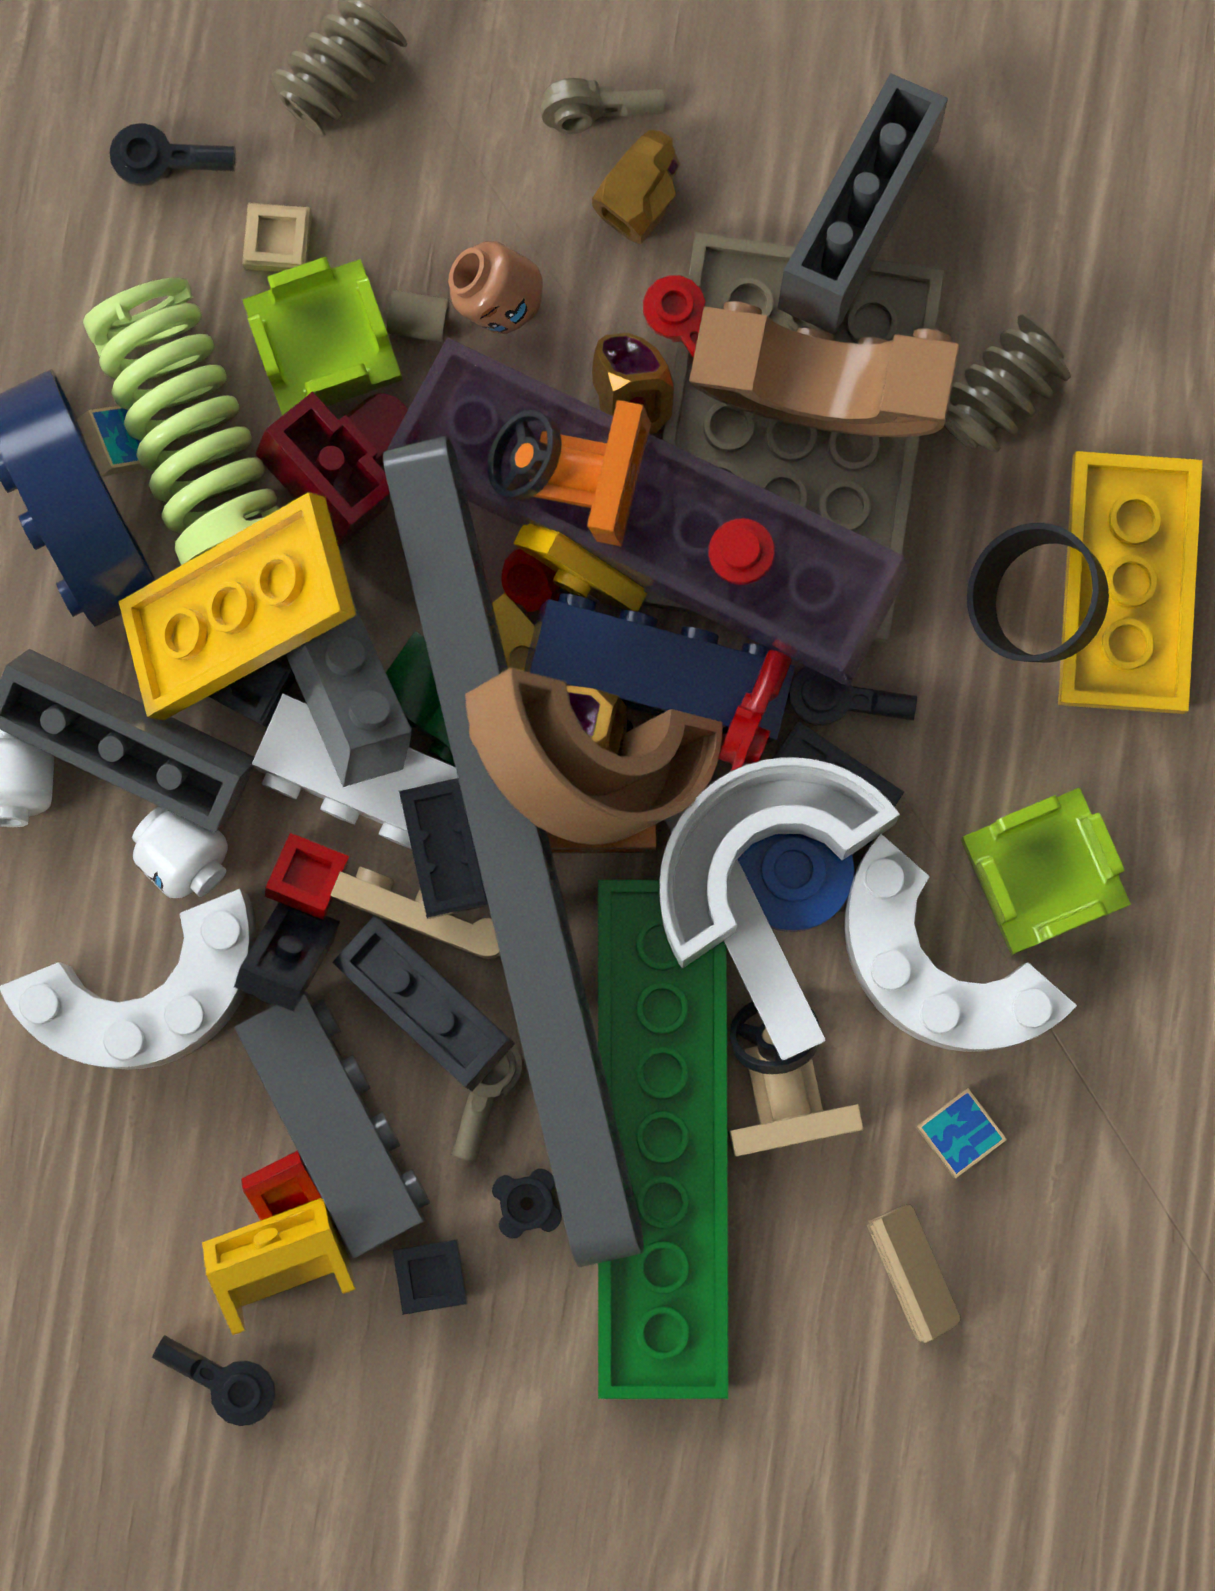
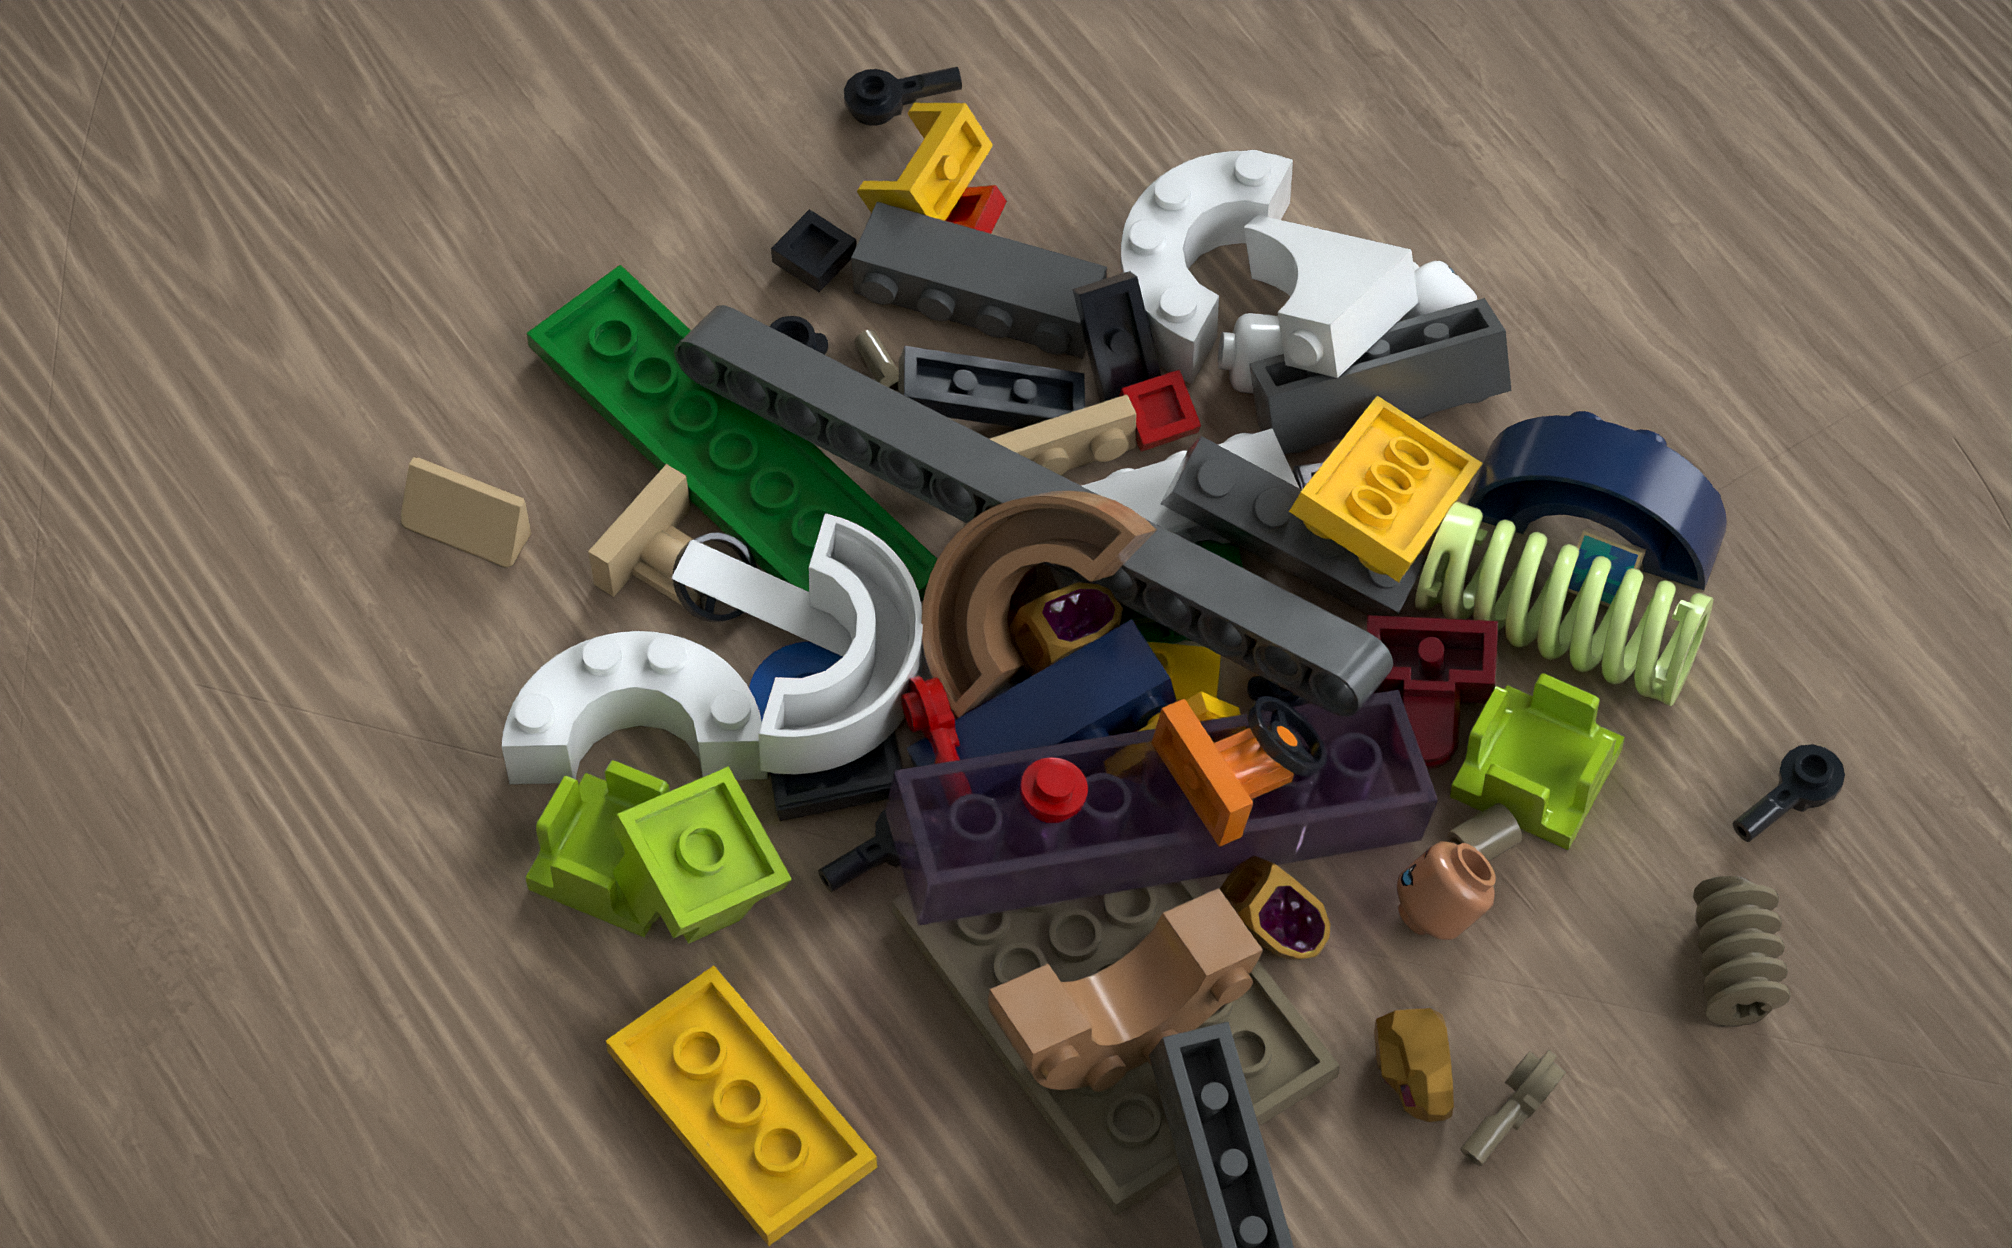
camera: 135 degrees right, 25 degrees down
(81, 821) = (1339, 290): none -> white arch
(276, 237) = (1649, 808): tan tile -> none
(443, 849) = (1080, 461): black plate -> none
(675, 309) = (1292, 983): red plate -> none
(961, 1133) = (513, 633): tile -> none
(987, 576) = (821, 979): black tyre -> none
(1004, 385) = (979, 1155): dark tan piece -> none
(1010, 784) = (696, 857): none -> lime panel

